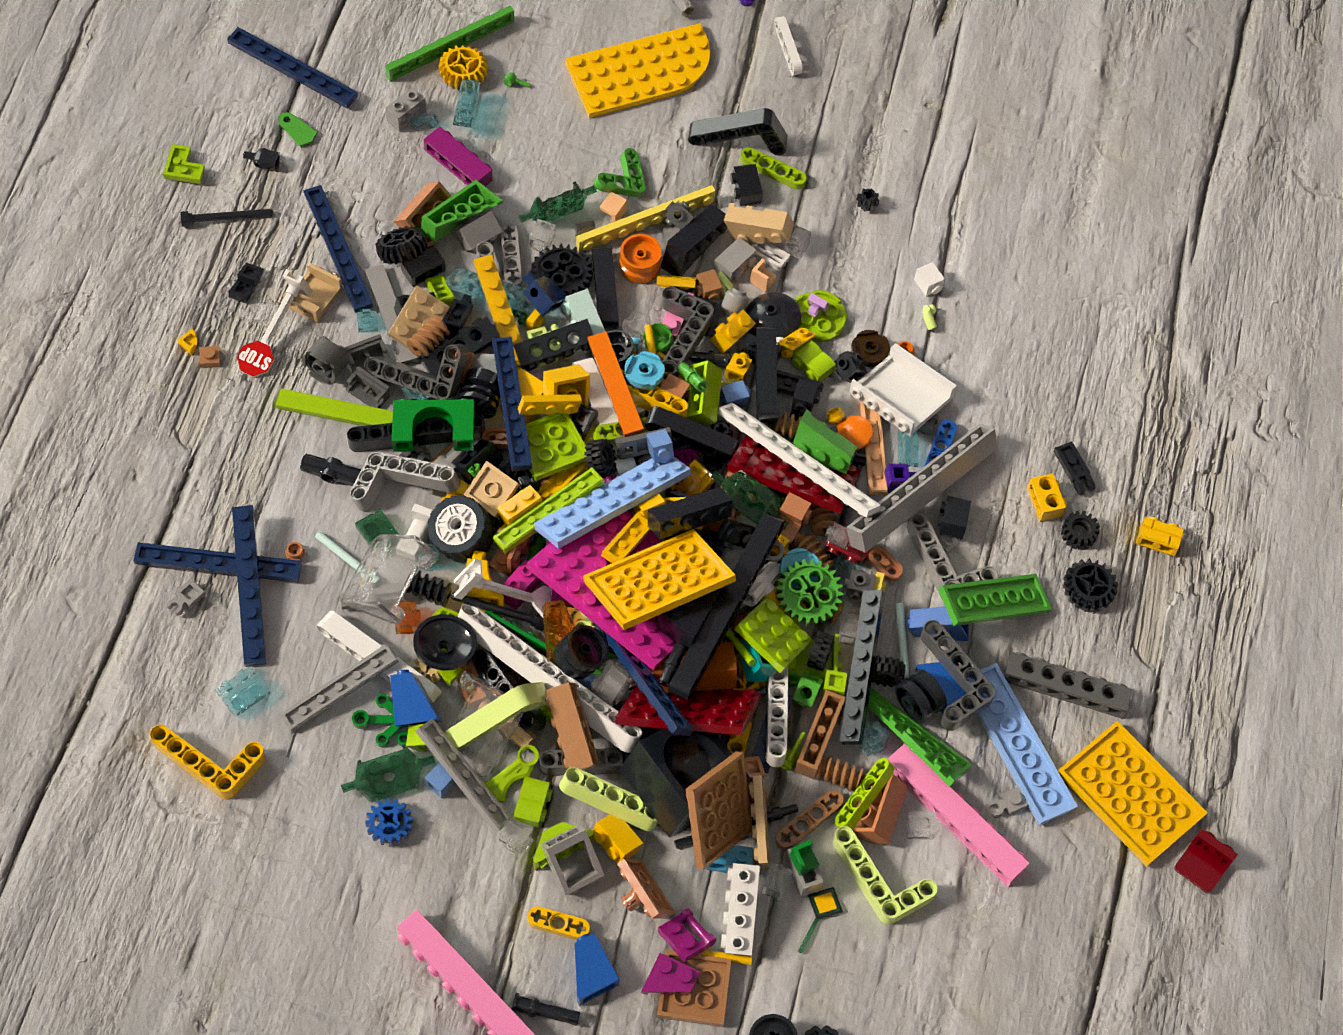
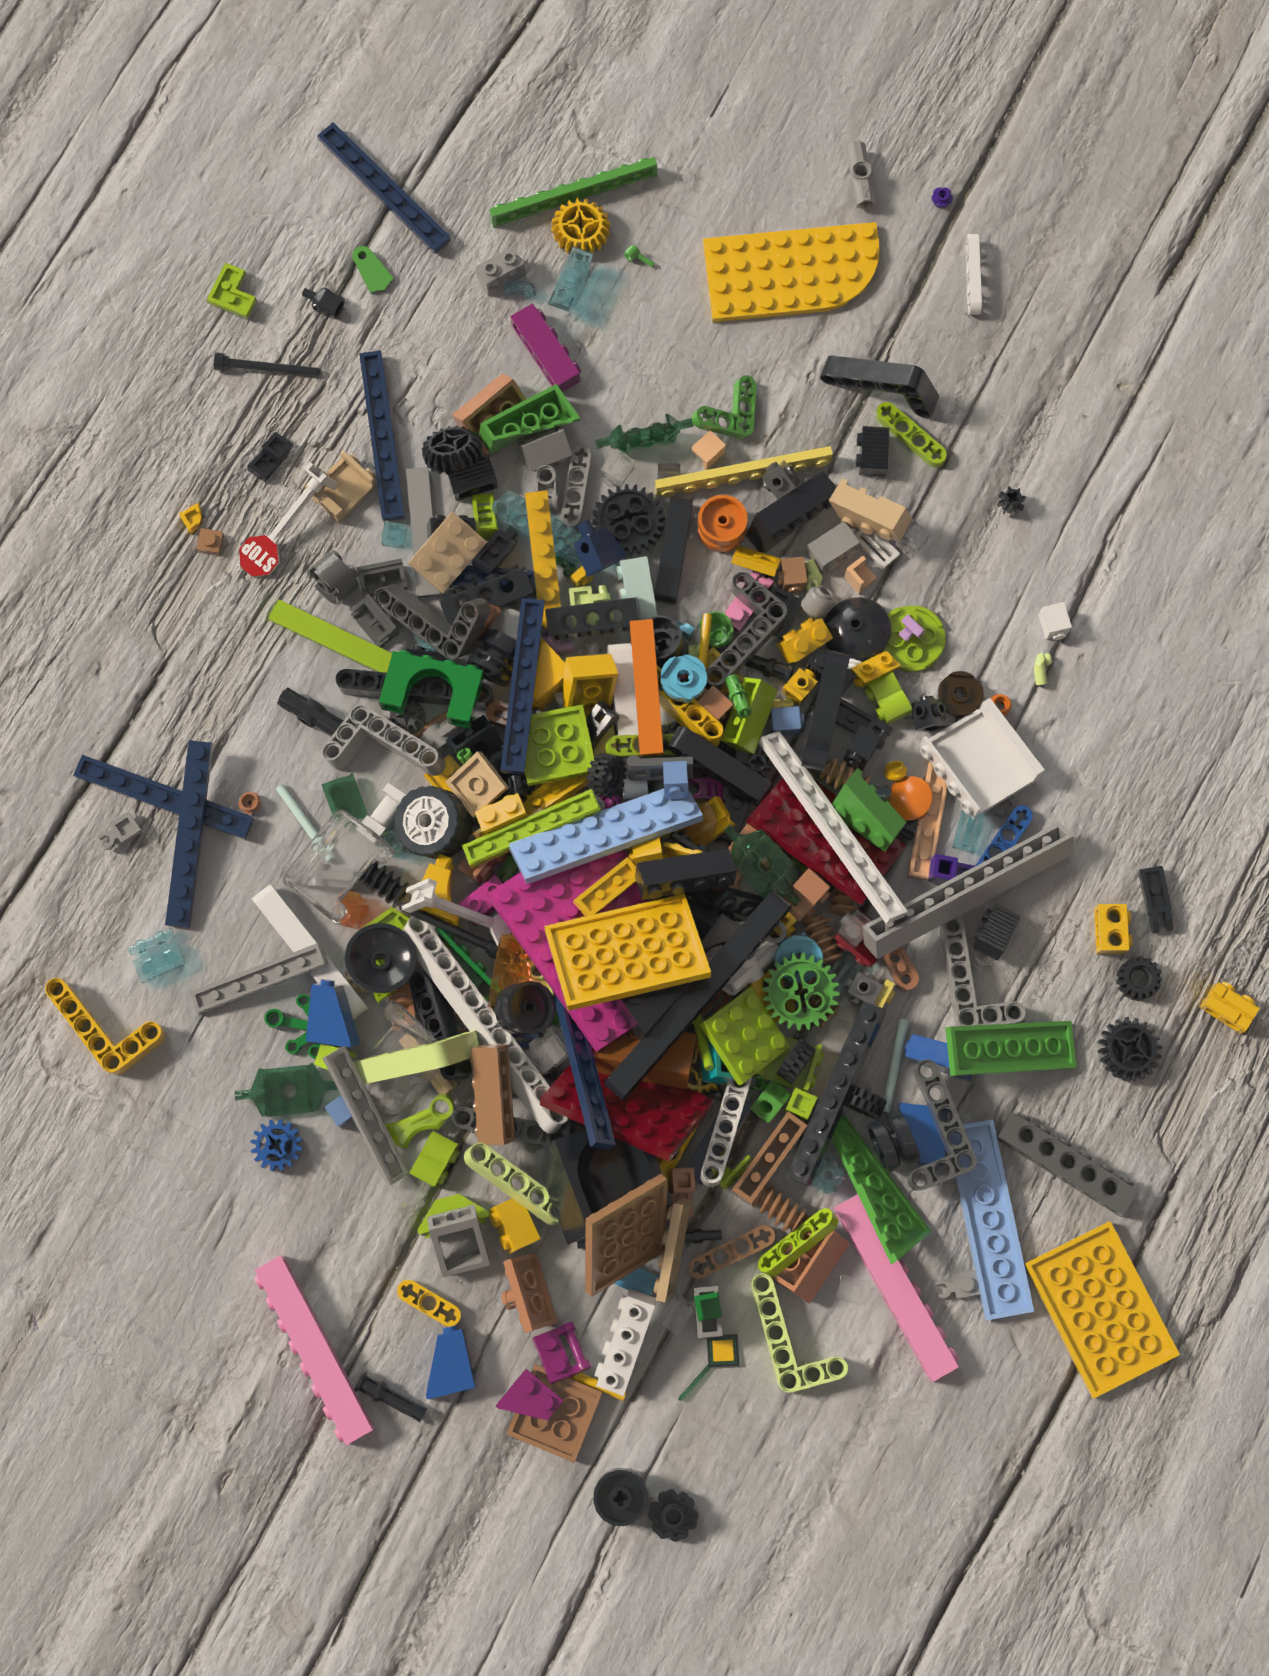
camera: 20 degrees right, 15 degrees up
(428, 336) = (451, 579): medium nougat piece -> none
(549, 404) = (563, 700): yellow plate -> none
(672, 664) = (617, 1053): black pin -> none
(1205, 861) = (1158, 1410): dark red bracket -> none

